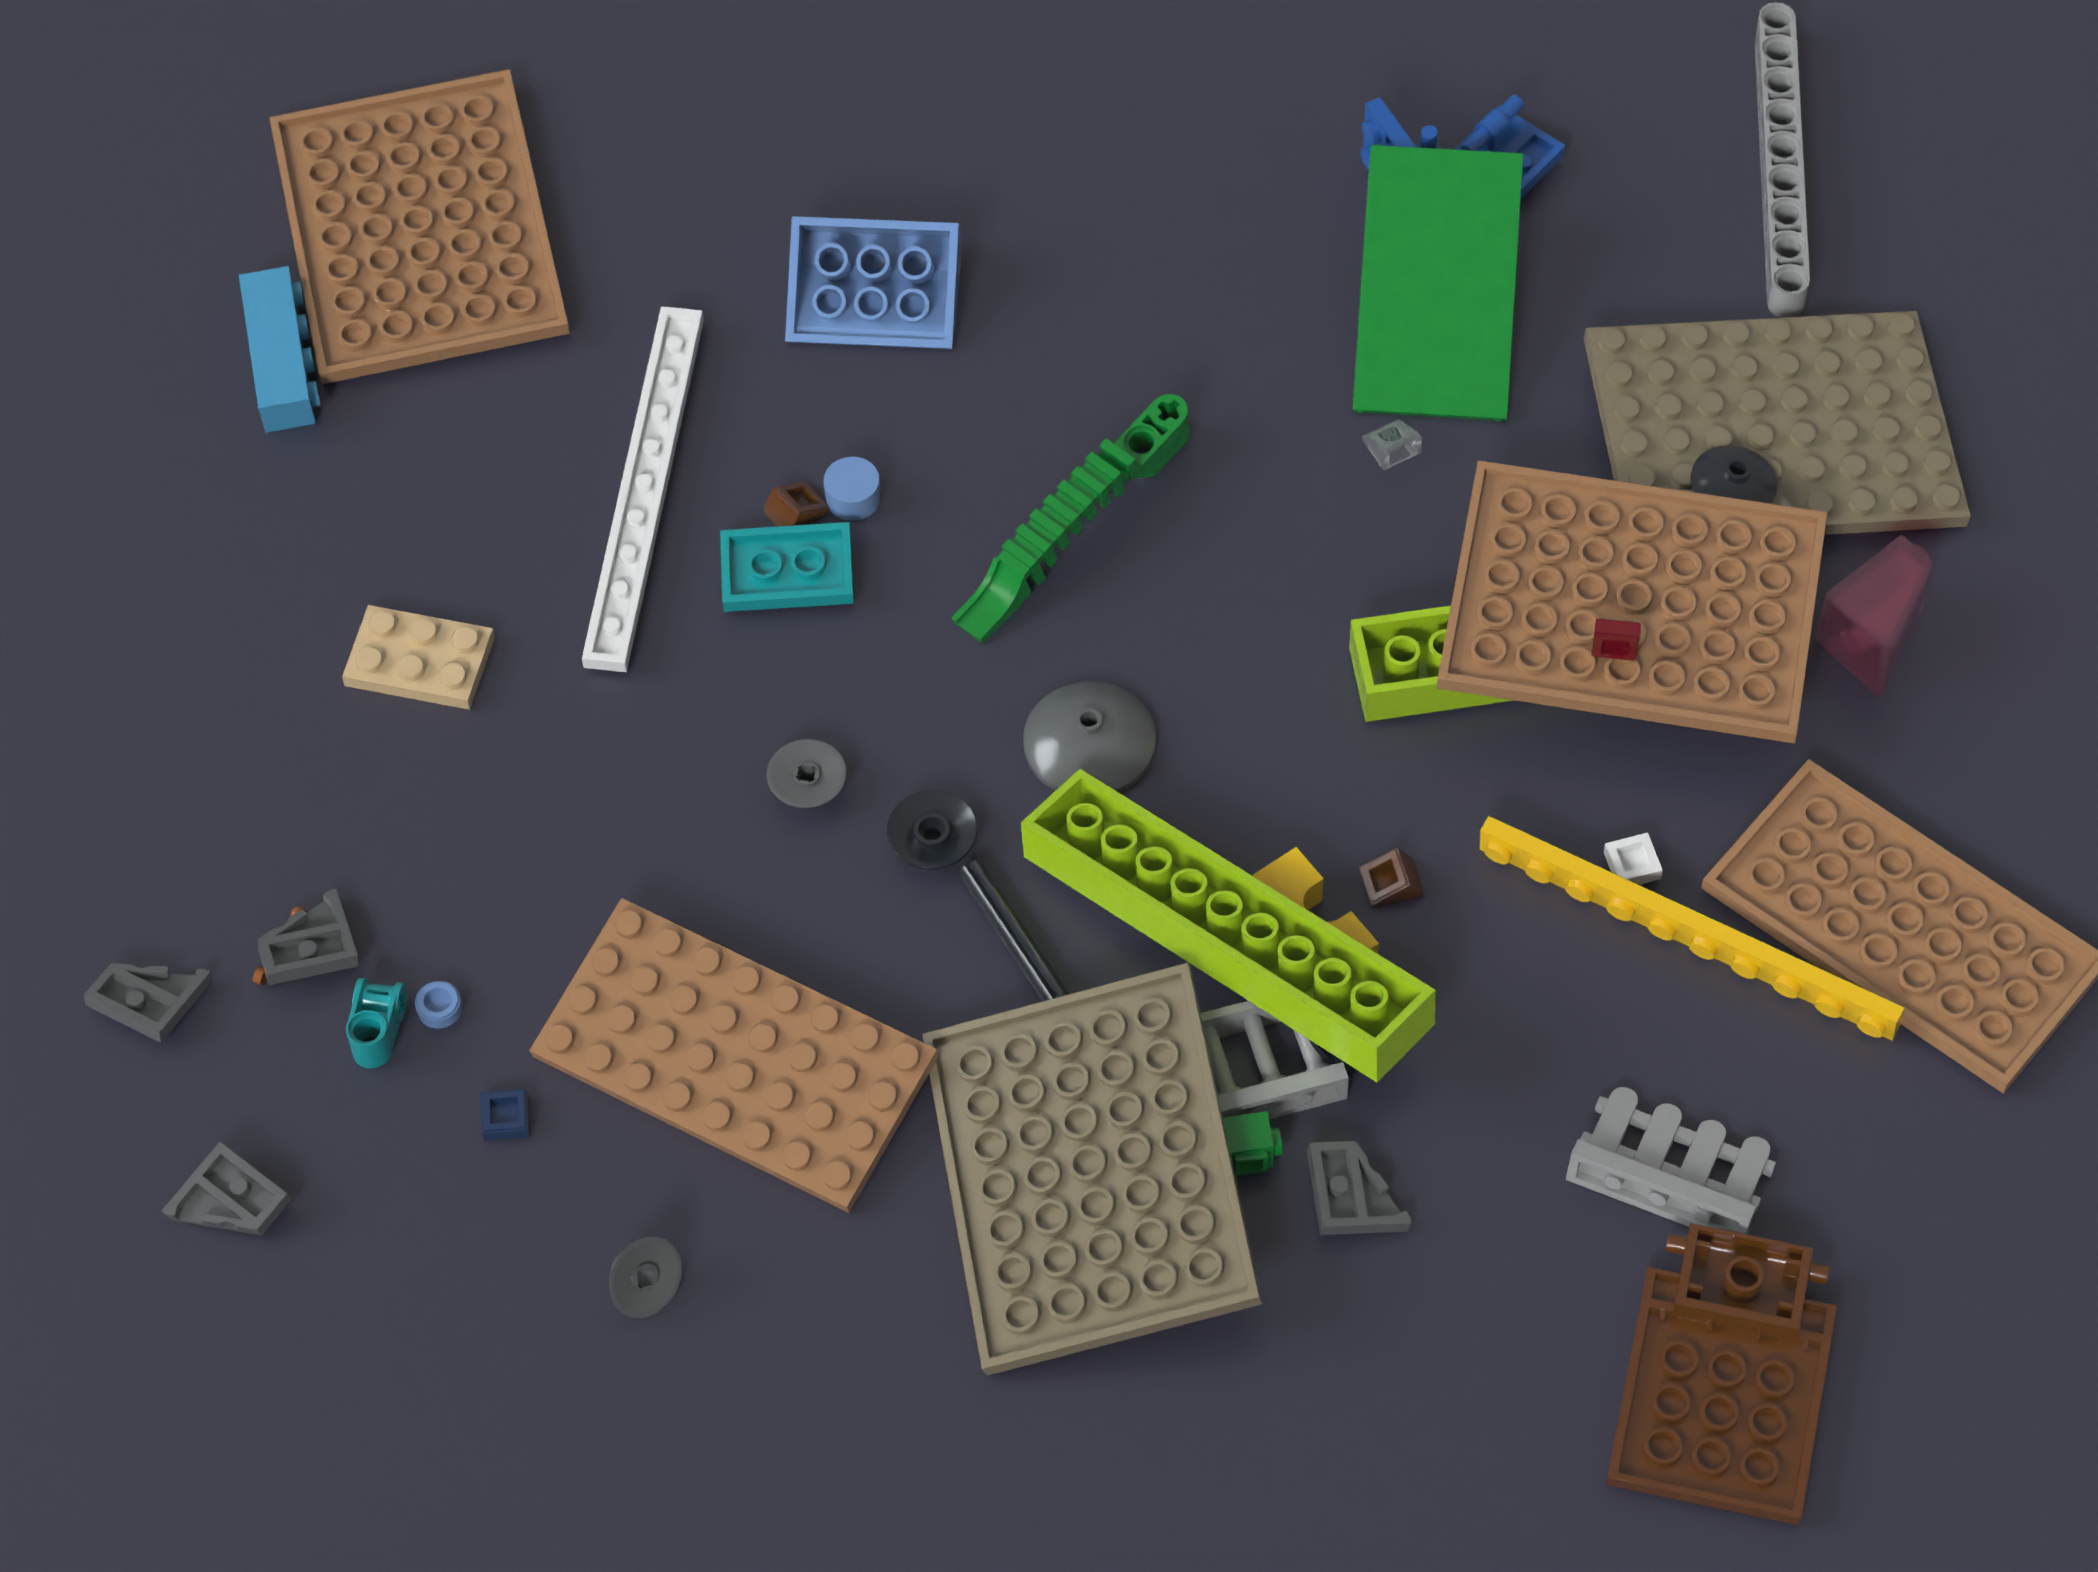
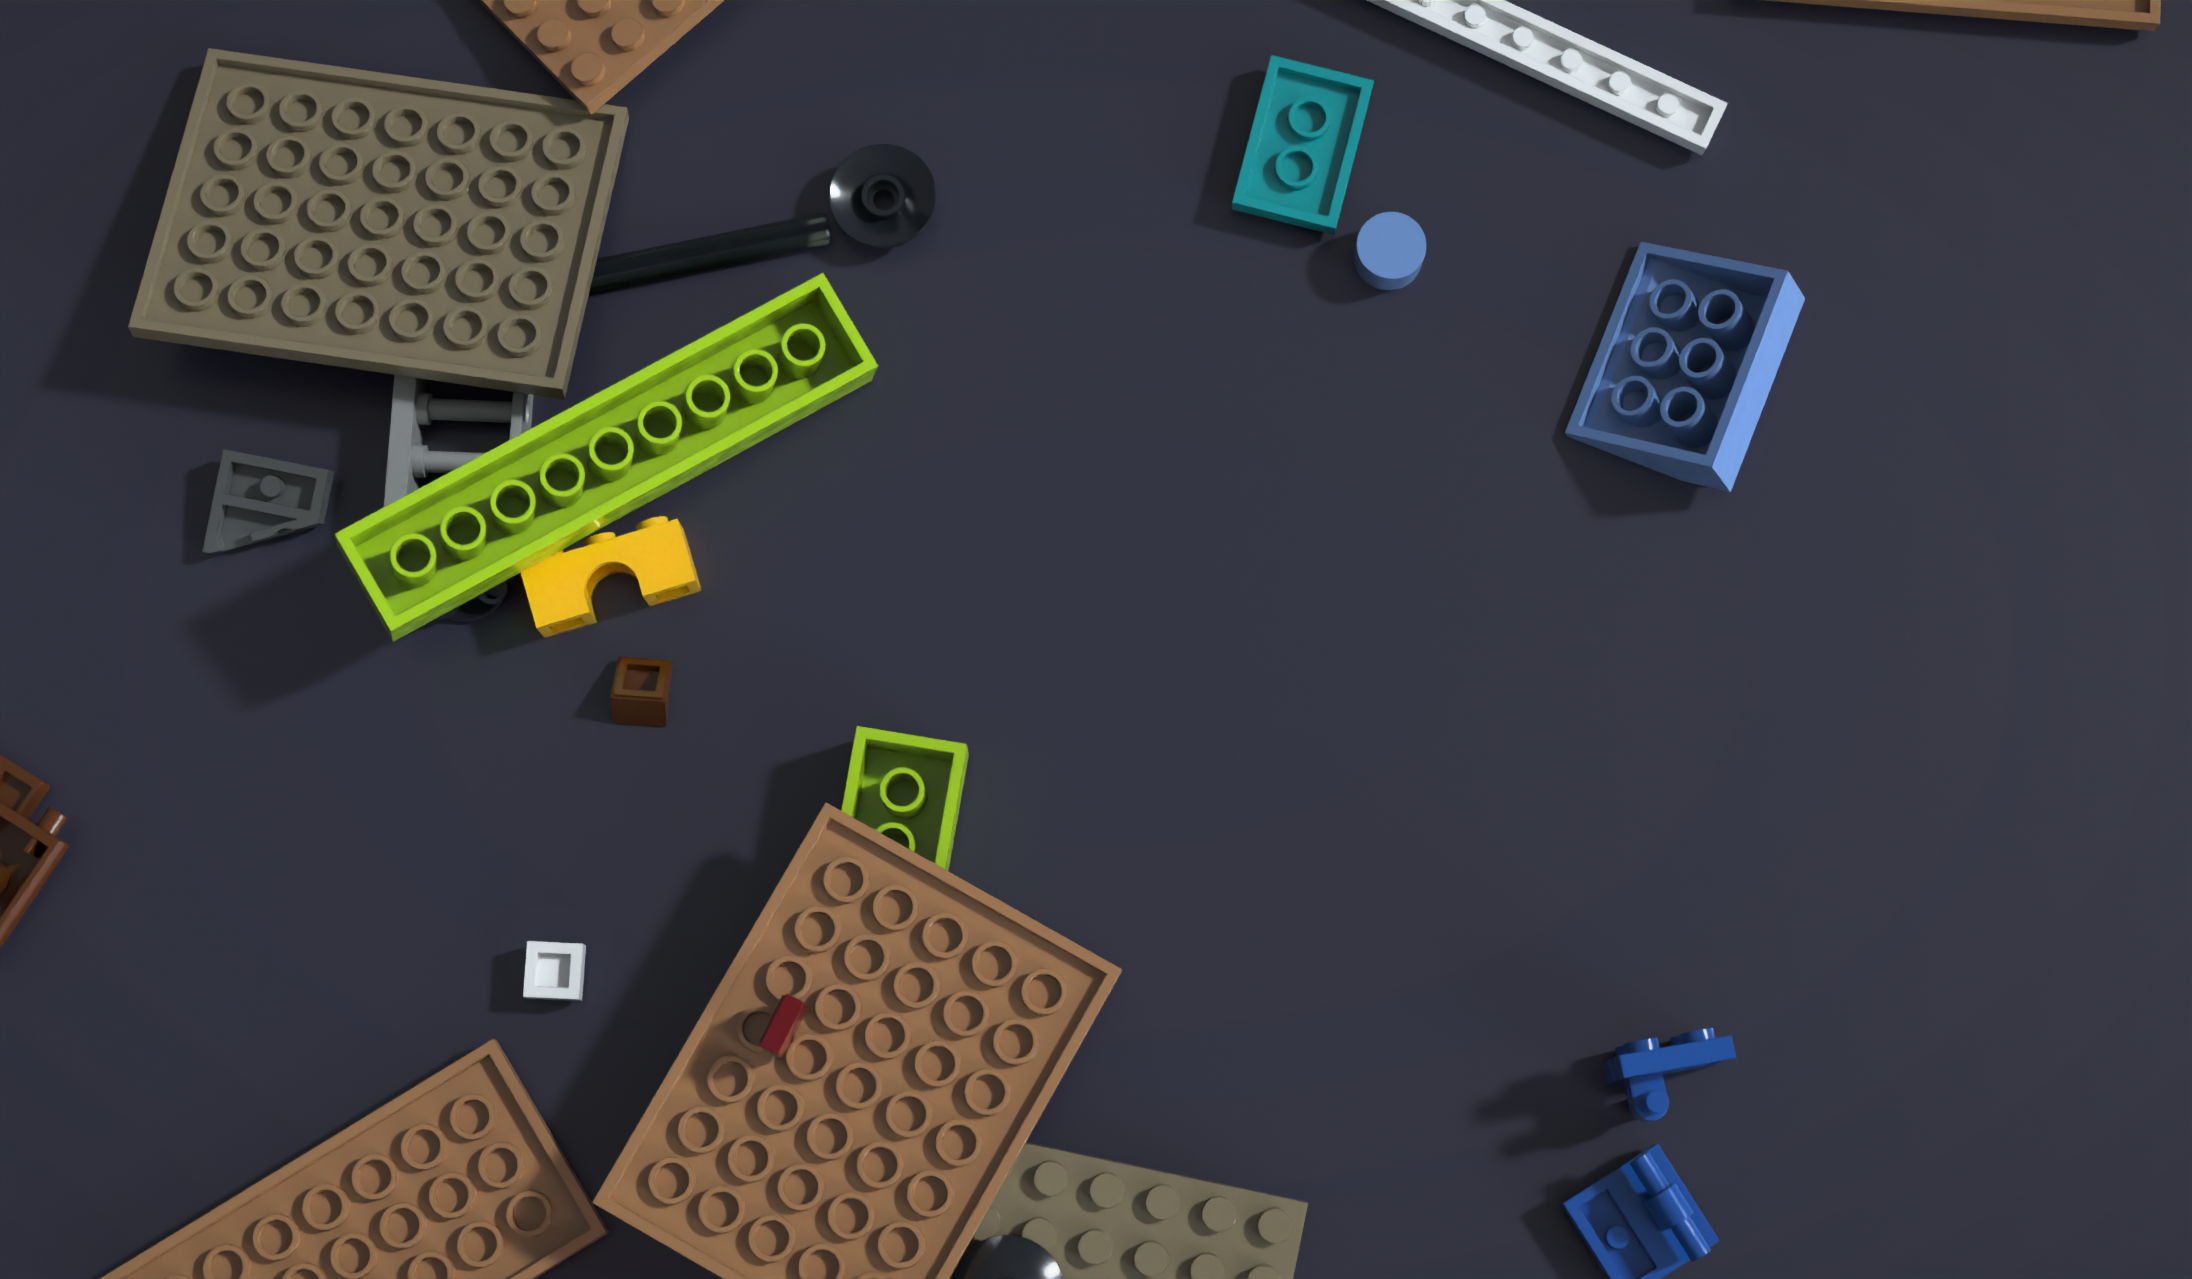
camera: 105 degrees right, 20 degrees up
(795, 505) = (1392, 183): reddish brown slope -> none
(808, 759) = (1010, 59): dark grey piece -> none
(1112, 750) = (962, 450): dark grey dish -> none
(1161, 427) = (1261, 488): green piece -> none
(1252, 1142) = (360, 407): green window -> none
(1393, 443) = (1245, 911): clear slope -> none
(1438, 283) = (1444, 1043): green piece -> none
(1662, 1188) = (133, 876): light grey fence -> none
(1702, 934) = (423, 1011): yellow plate -> none

